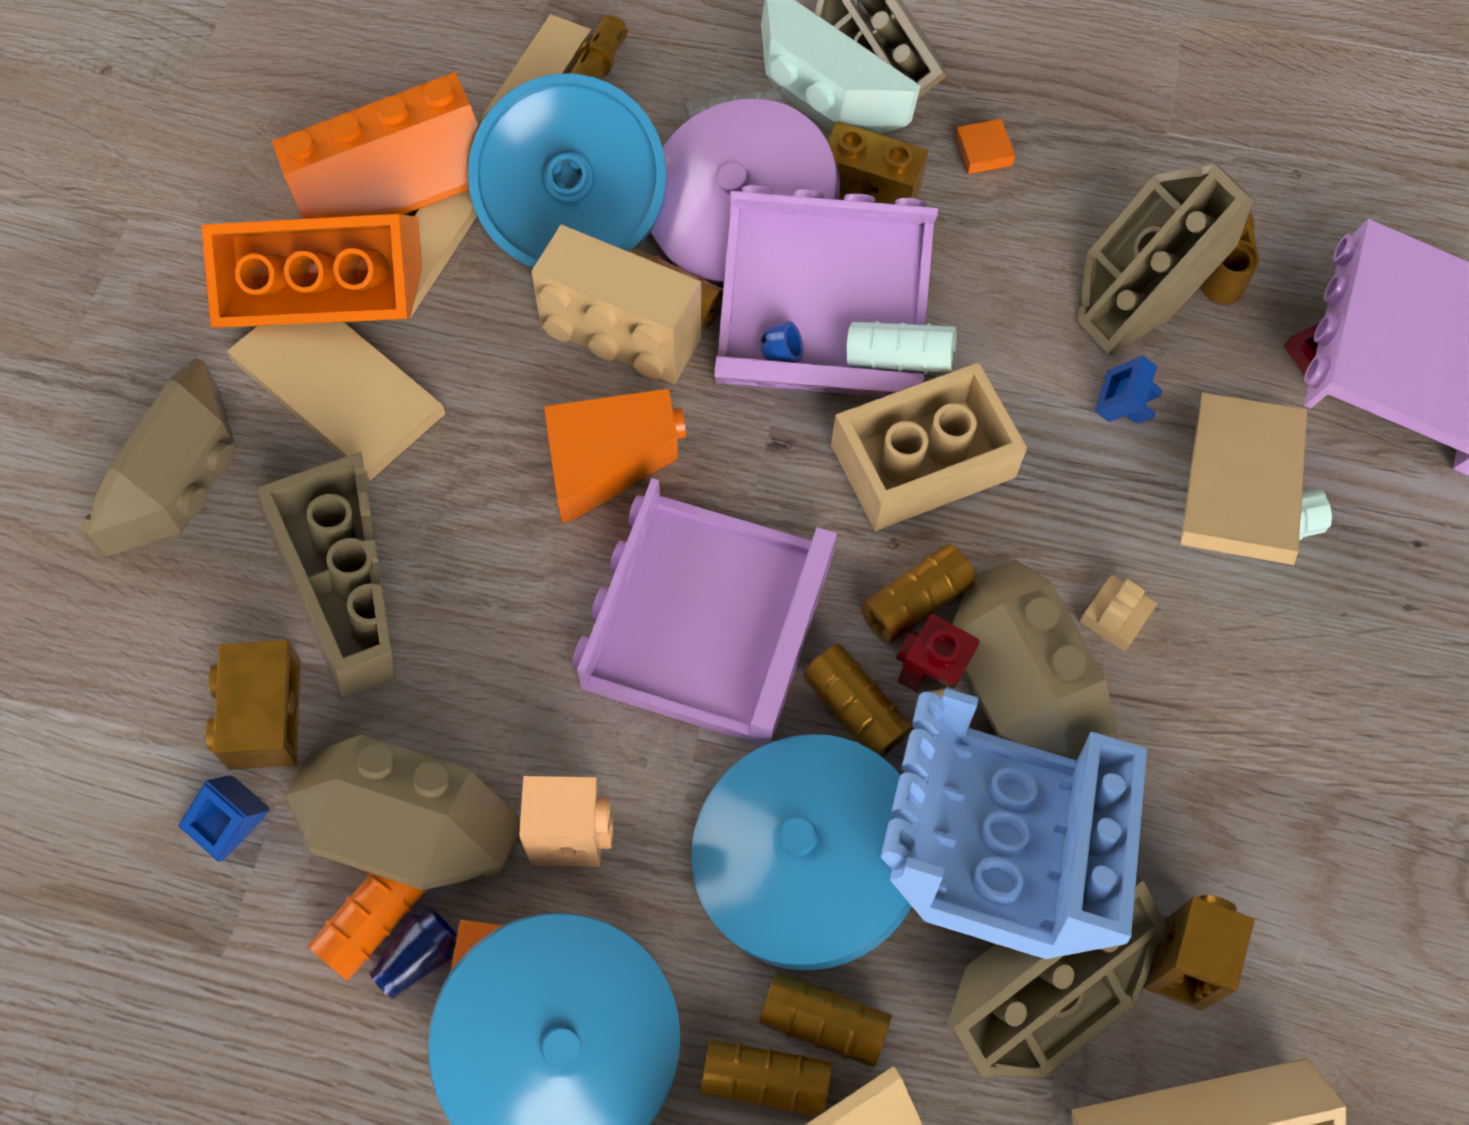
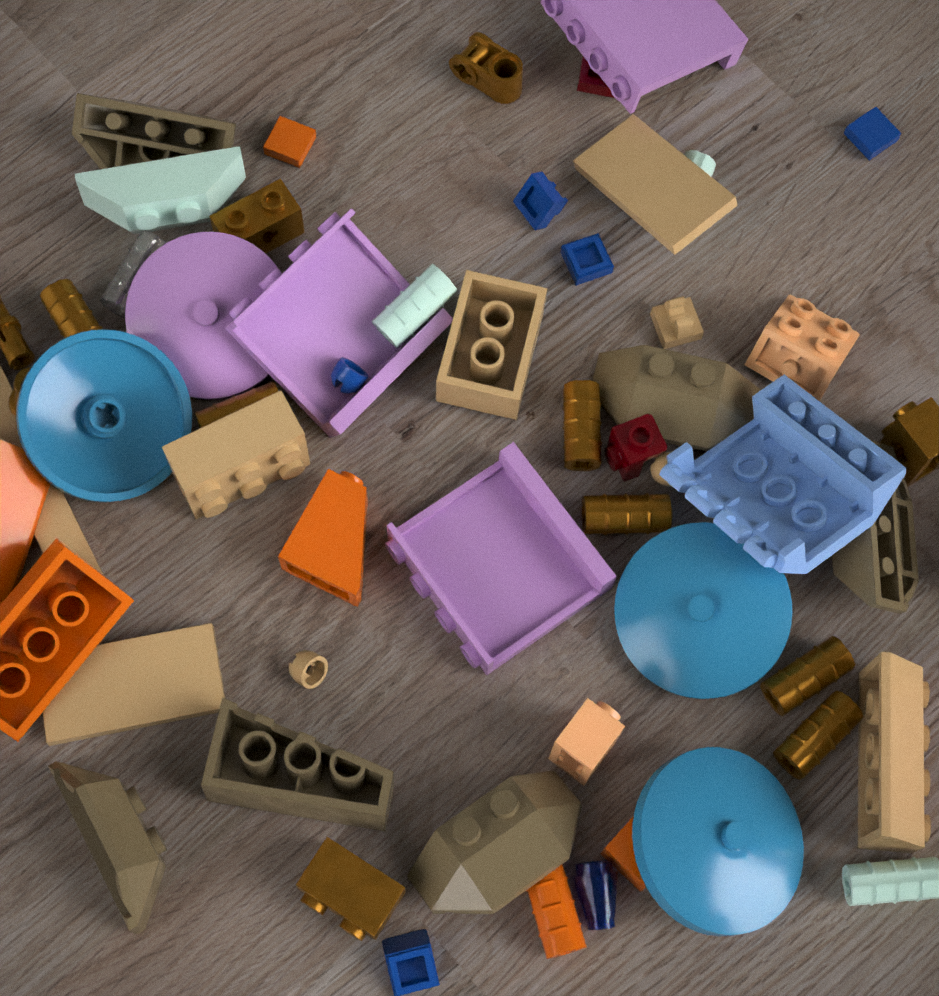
camera: 55 degrees left, 5 degrees up
(448, 518) = (315, 674): none -> tan hinge
(657, 86) = (68, 308): none -> pearl gold axle
(1109, 480) = (587, 259): none -> blue tile
(1160, 253) = (468, 108): dark tan wedge -> none
(1206, 757) = (802, 346): none -> light nougat bracket

